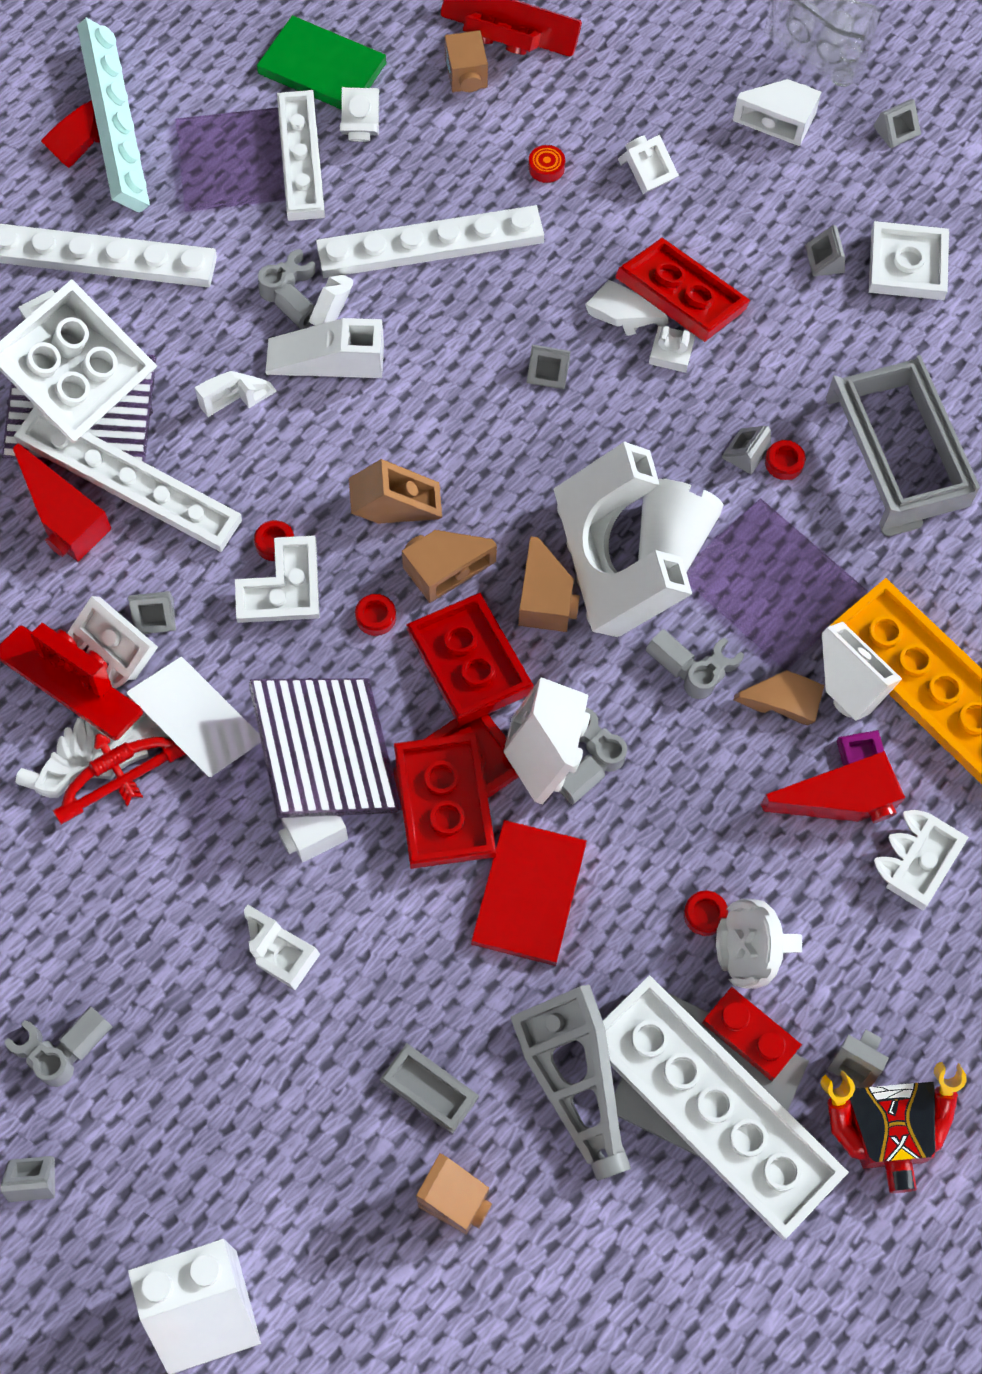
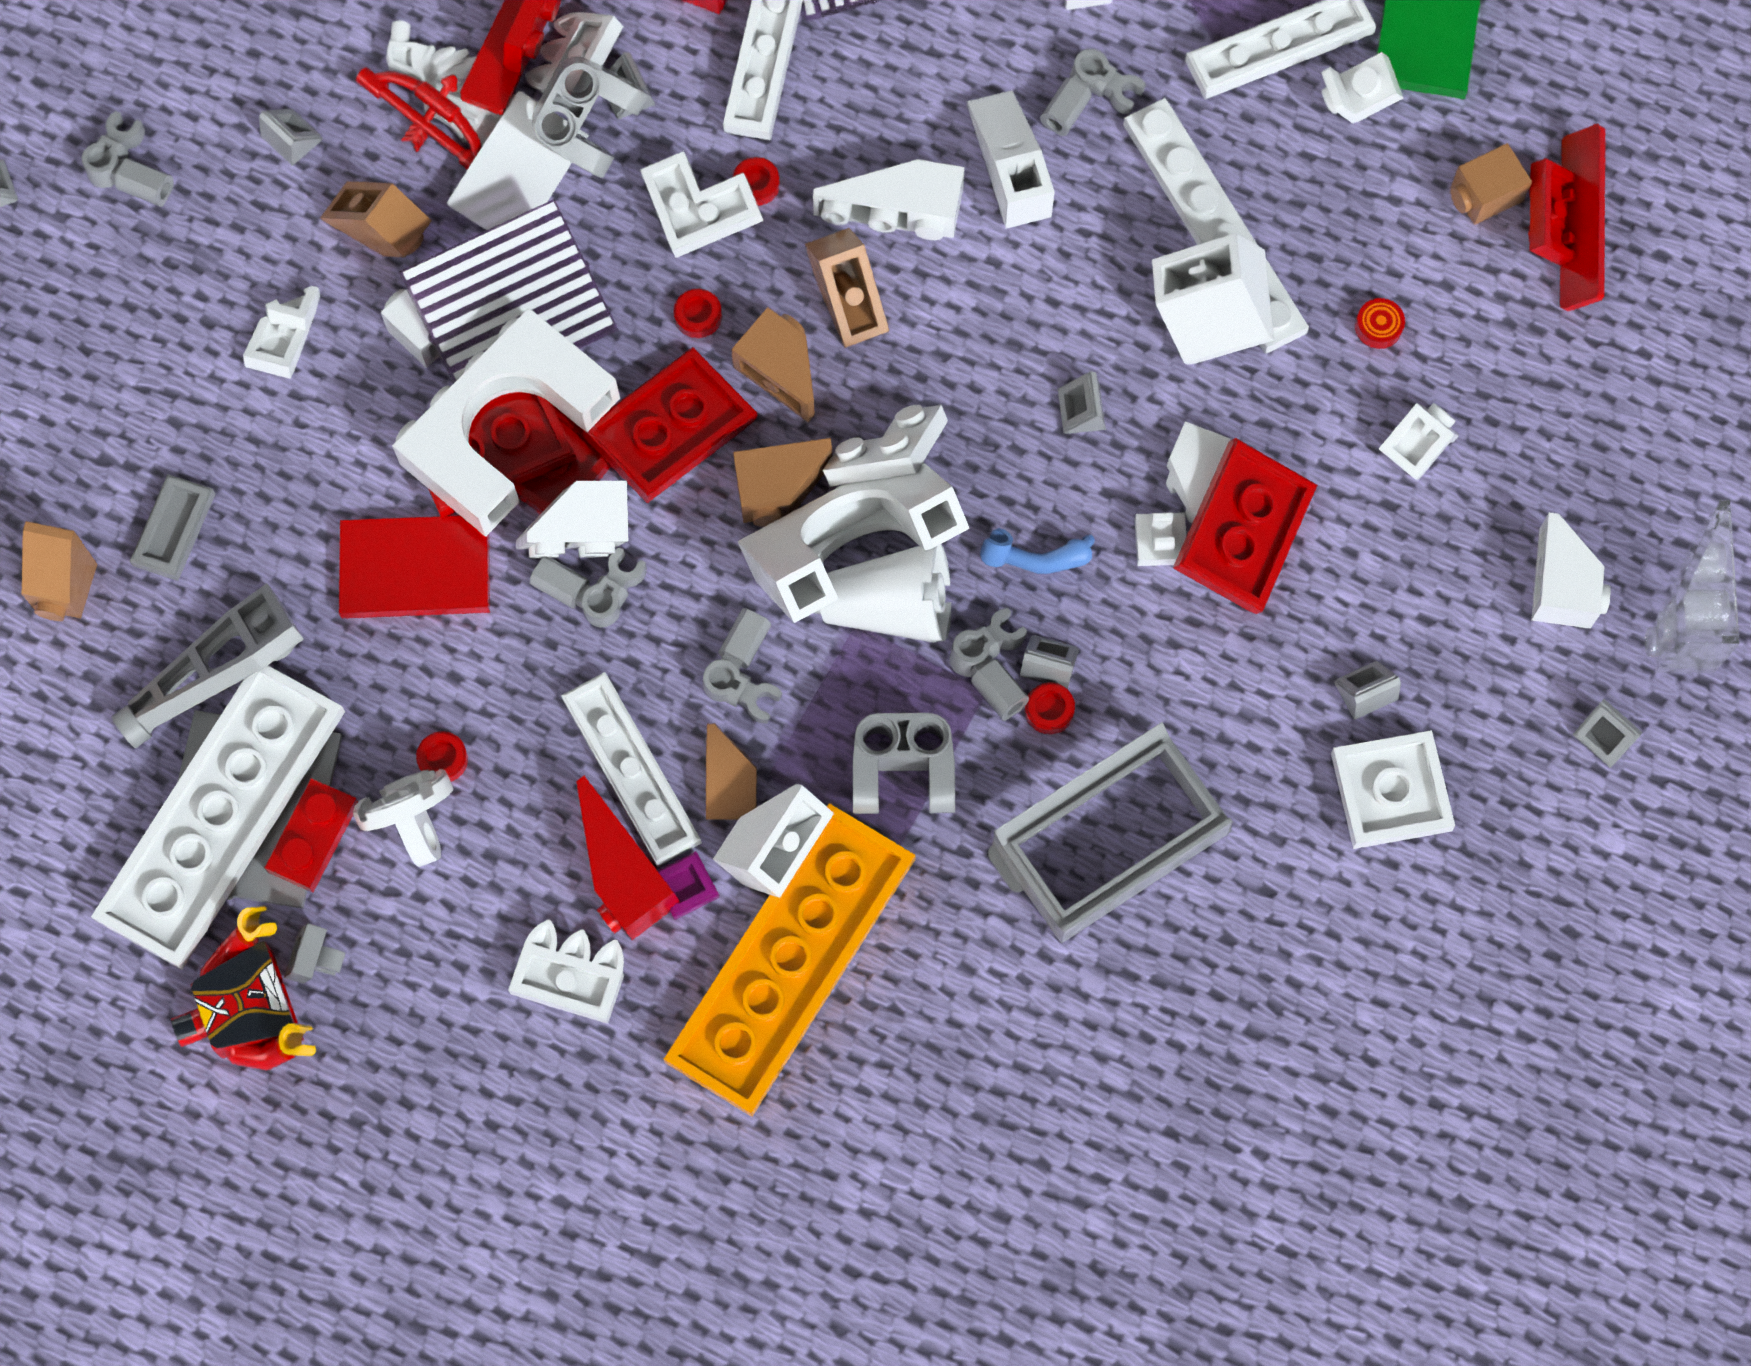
camera: 75 degrees right, 5 degrees up
(86, 896) = (288, 133): none -> light grey slope
(169, 642) = (576, 108): none -> light grey piece
(199, 838) = (378, 217): none -> medium nougat slope
(229, 387) = (925, 66): white slope -> none
(331, 299) = (1075, 139): white slope -> none
(337, 428) = (905, 197): none -> white slope
(448, 827) = (523, 359): none -> white arch
(504, 247) = (1214, 297): none -> white slope
(558, 499) = (894, 455): none -> white plate
(669, 421) = (998, 551): none -> medium blue piece
(752, 489) = (973, 657): none -> light grey bar
(753, 768) = (631, 769): none -> white tile
(823, 540) = (903, 756): none -> light grey piece

